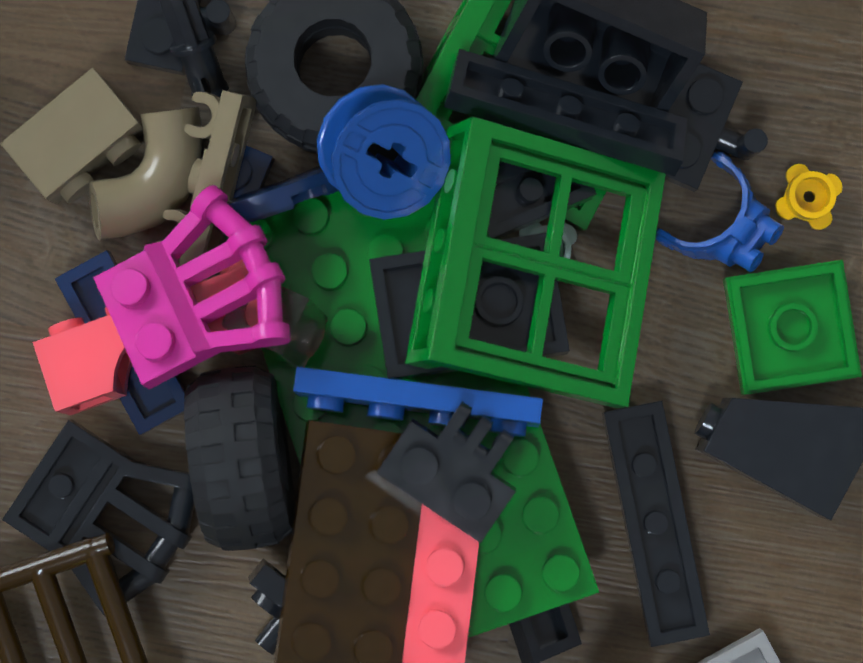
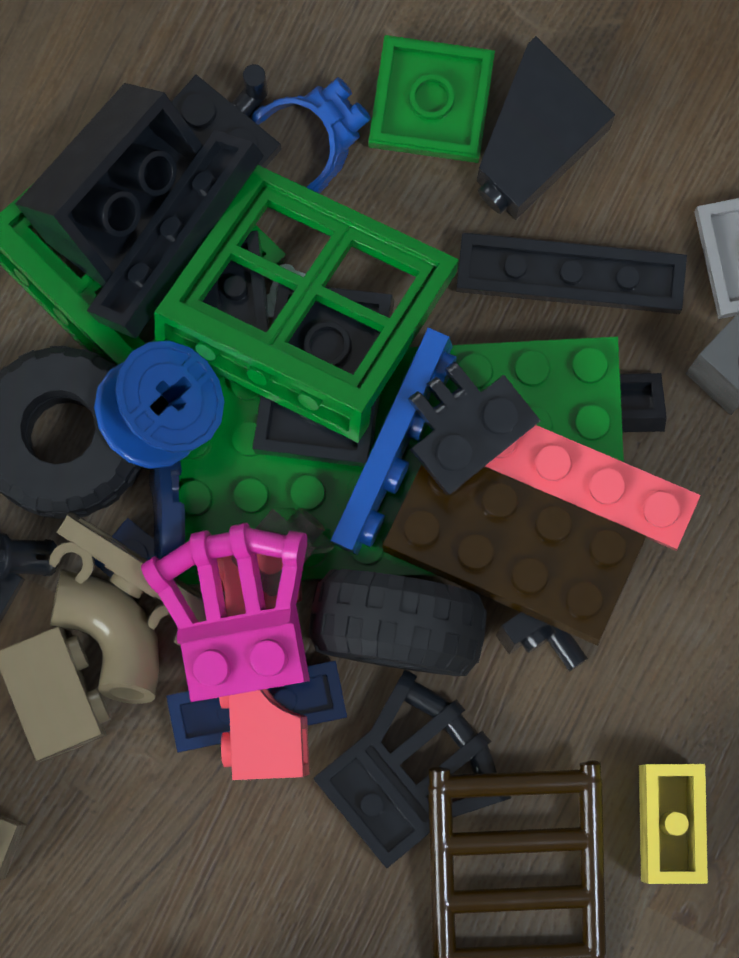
camera: 70 degrees left, 5 degrees down
(824, 188) = (316, 32): yellow plate -> none

